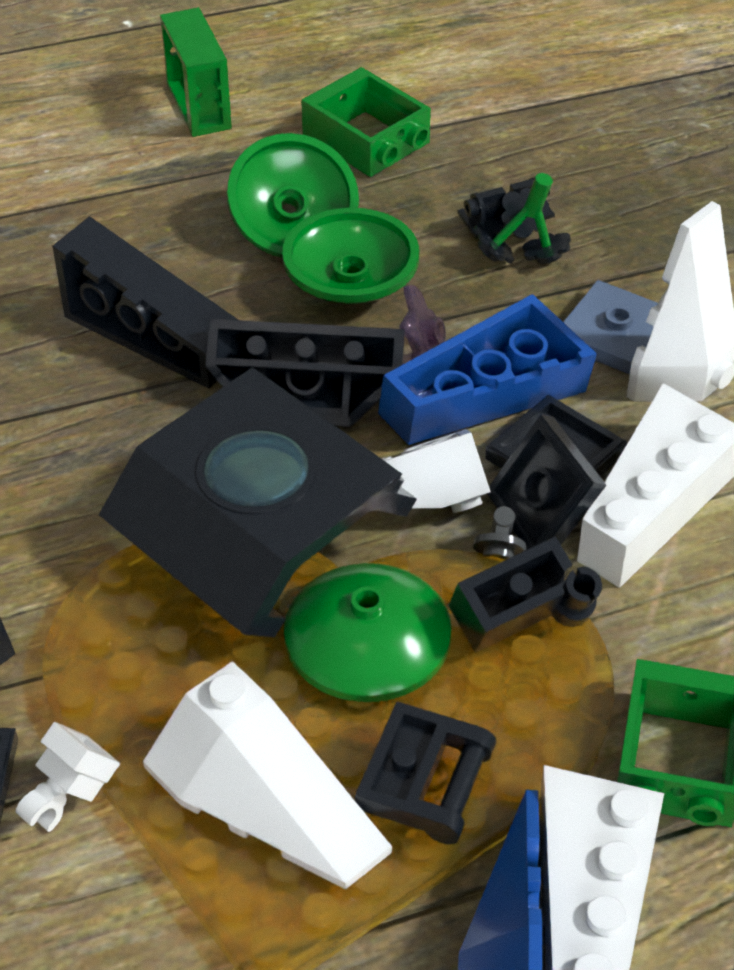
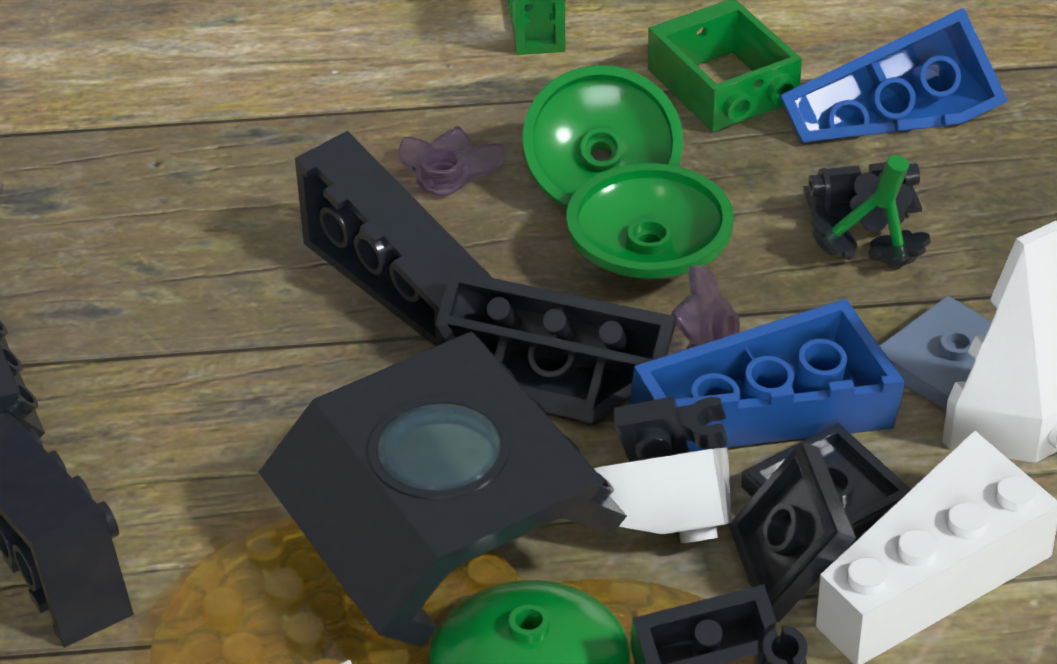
camera: 15 degrees right, 5 degrees down
(166, 230) = (449, 160): none -> clear purple plate
(418, 421) = (664, 429): none -> black plate
(500, 541) = (726, 579): dark grey plate -> none
(515, 117) = (909, 84): none -> blue wedge

